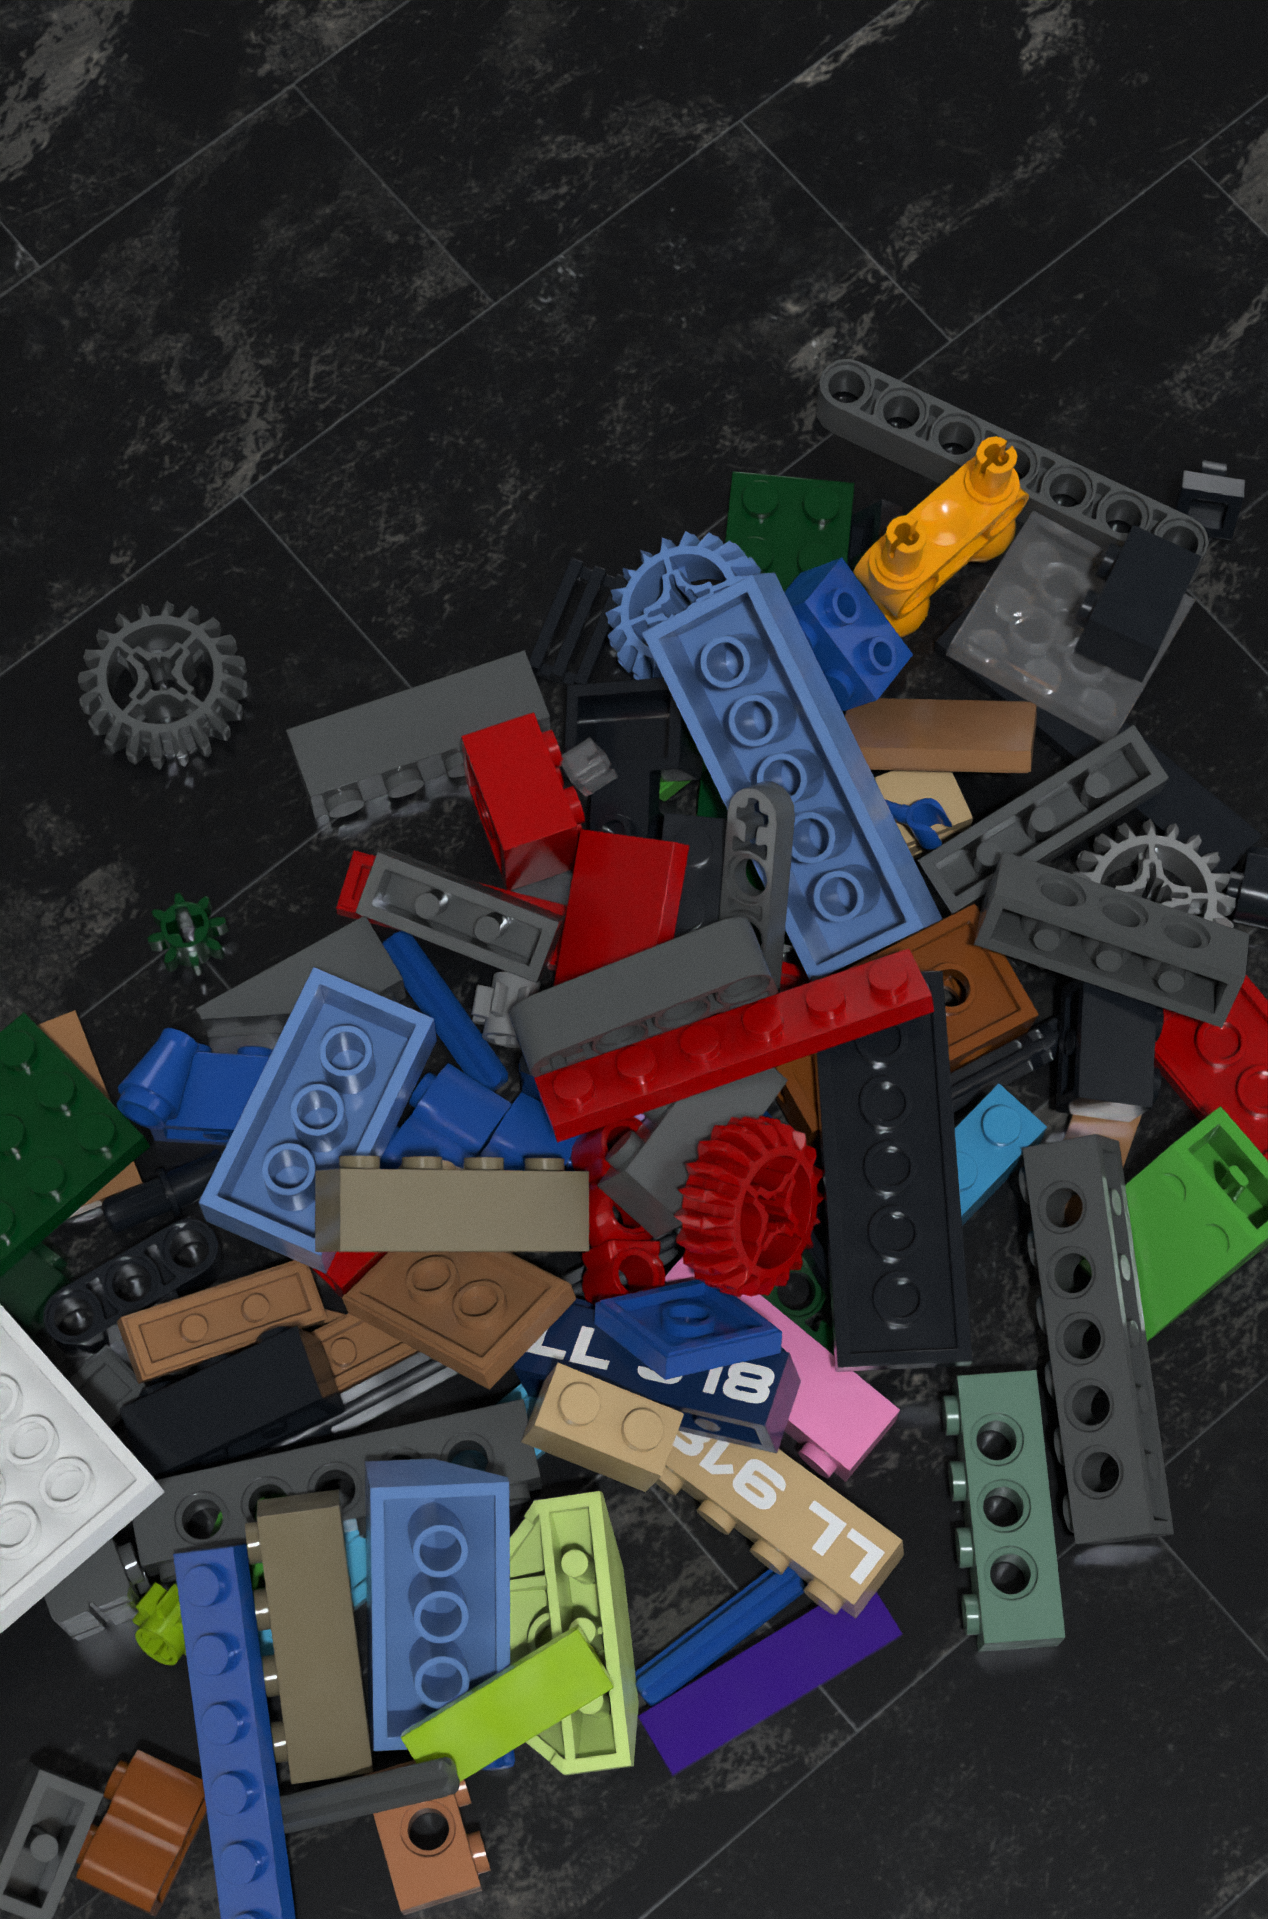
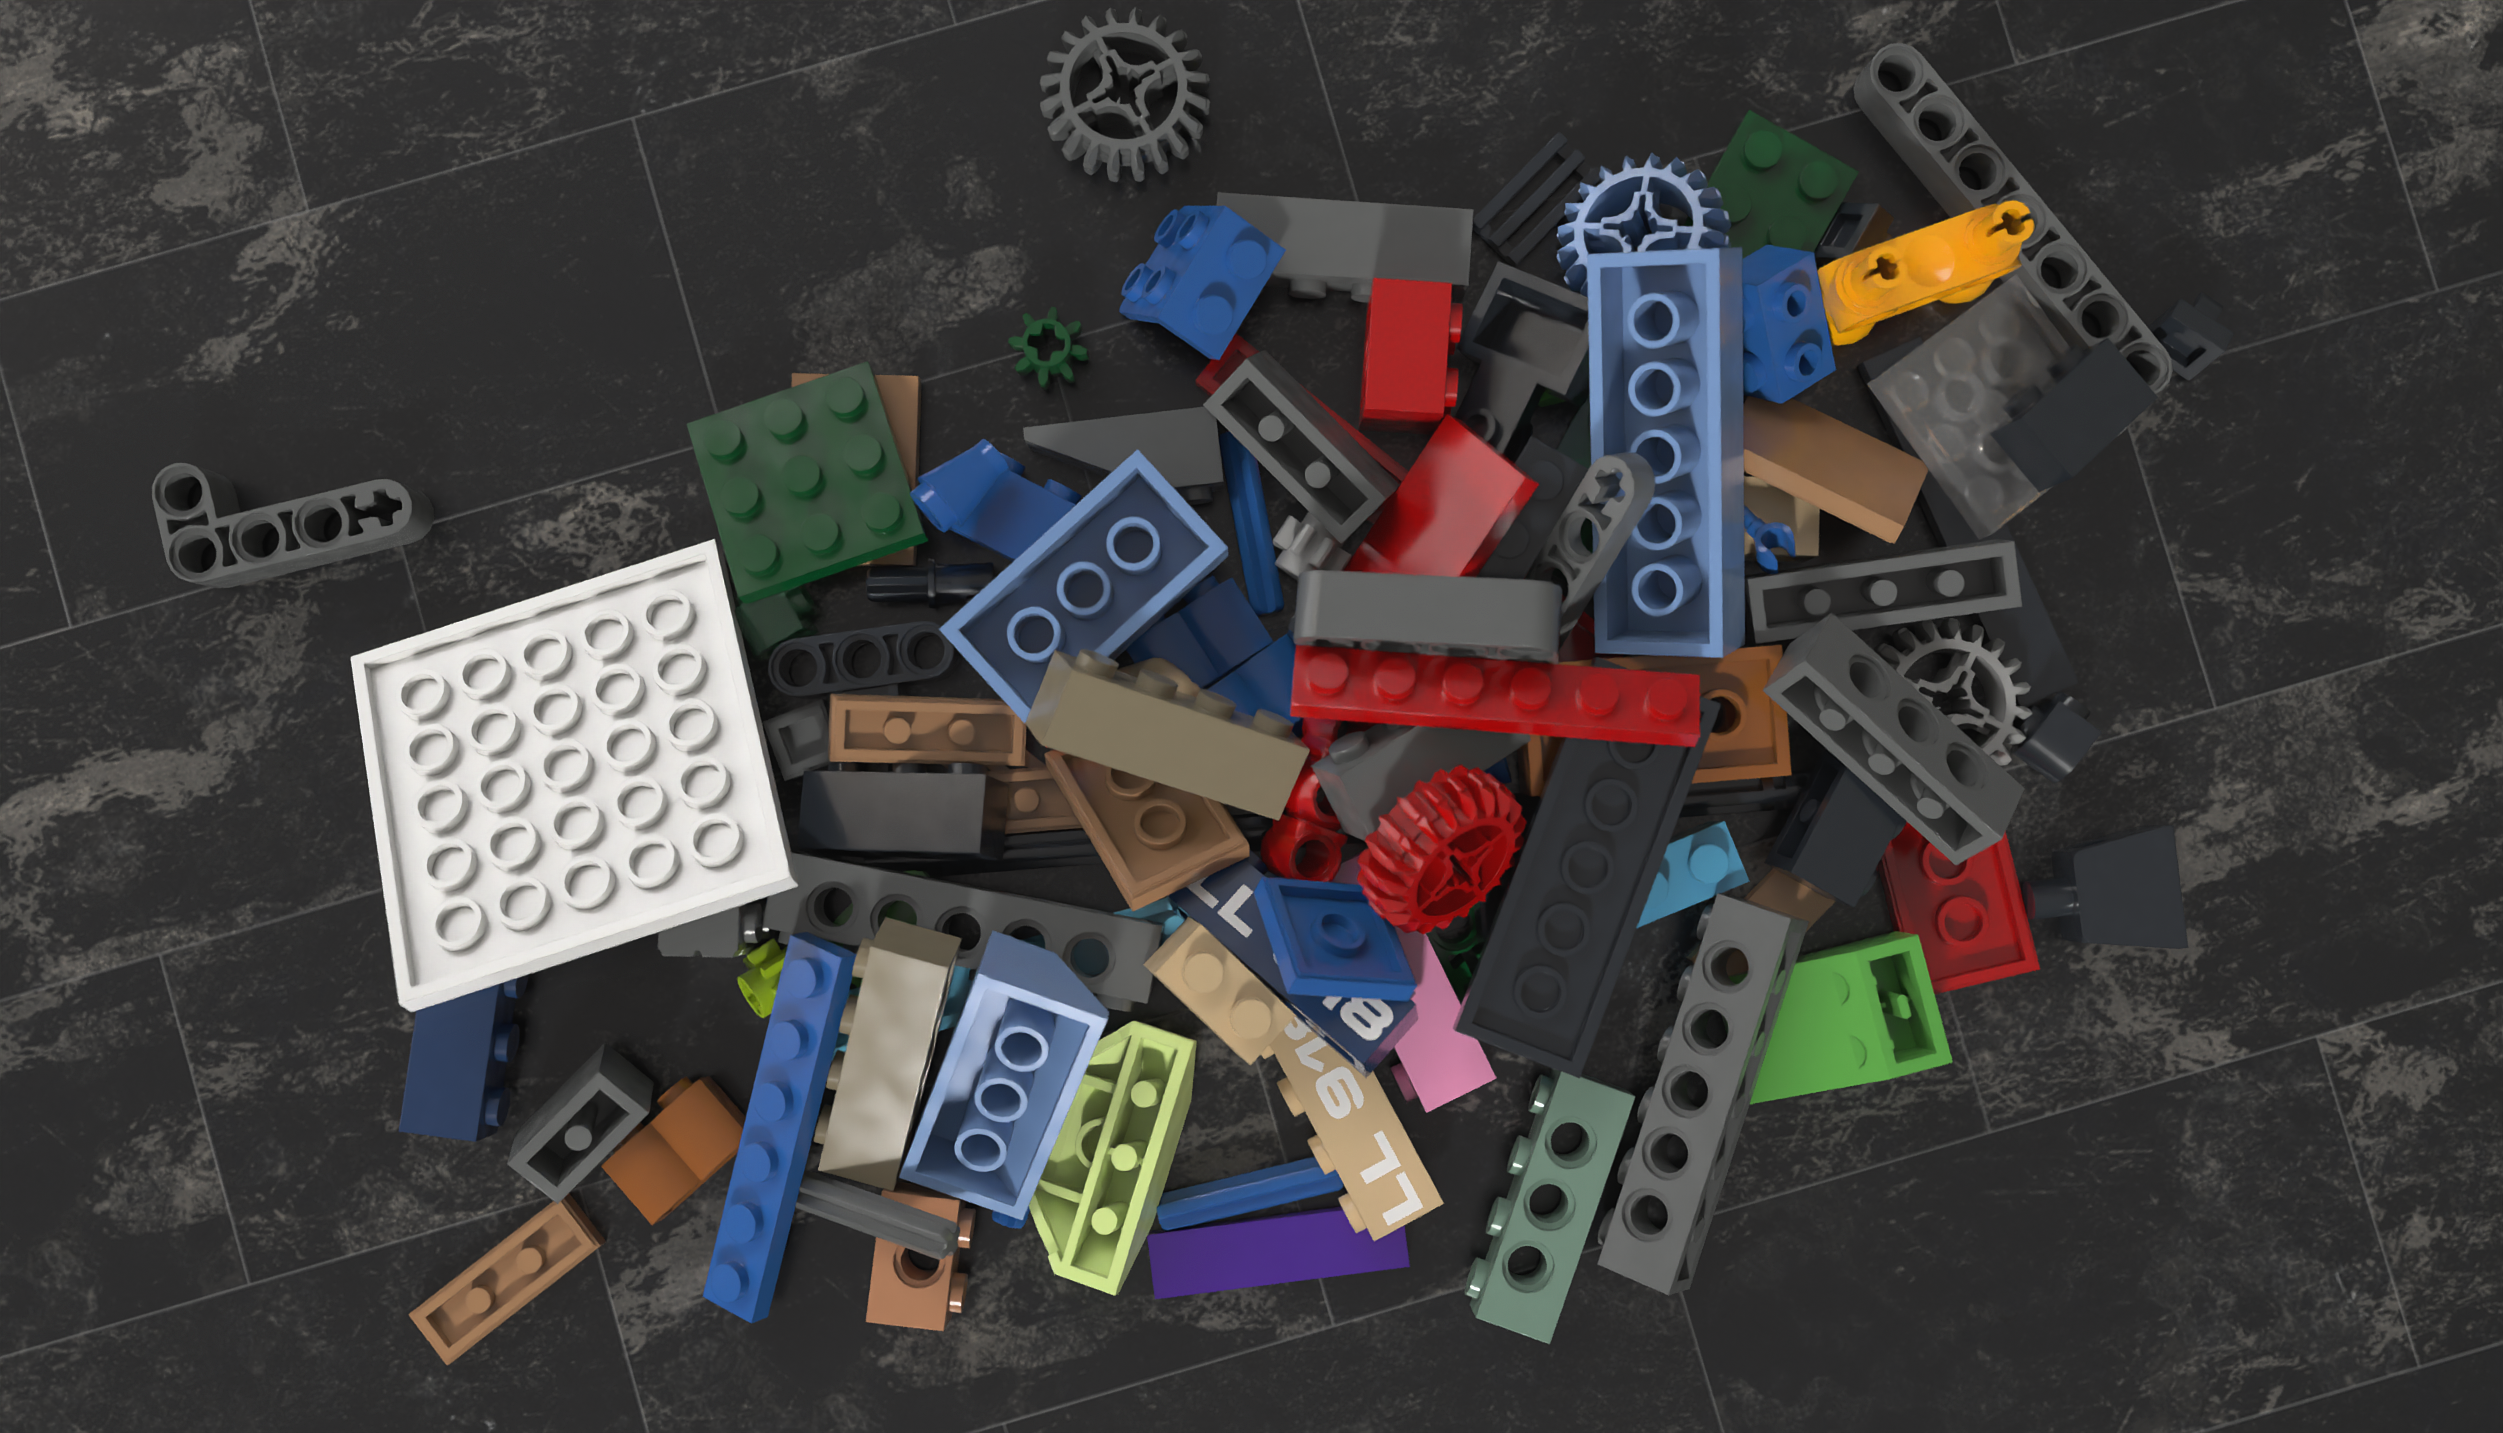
camera: 25 degrees right, 15 degrees up
(303, 807) = (1201, 276): none -> blue bracket
(512, 1705) = (1032, 1199): lime tile -> none
(588, 767) = (1480, 353): clear piece -> none

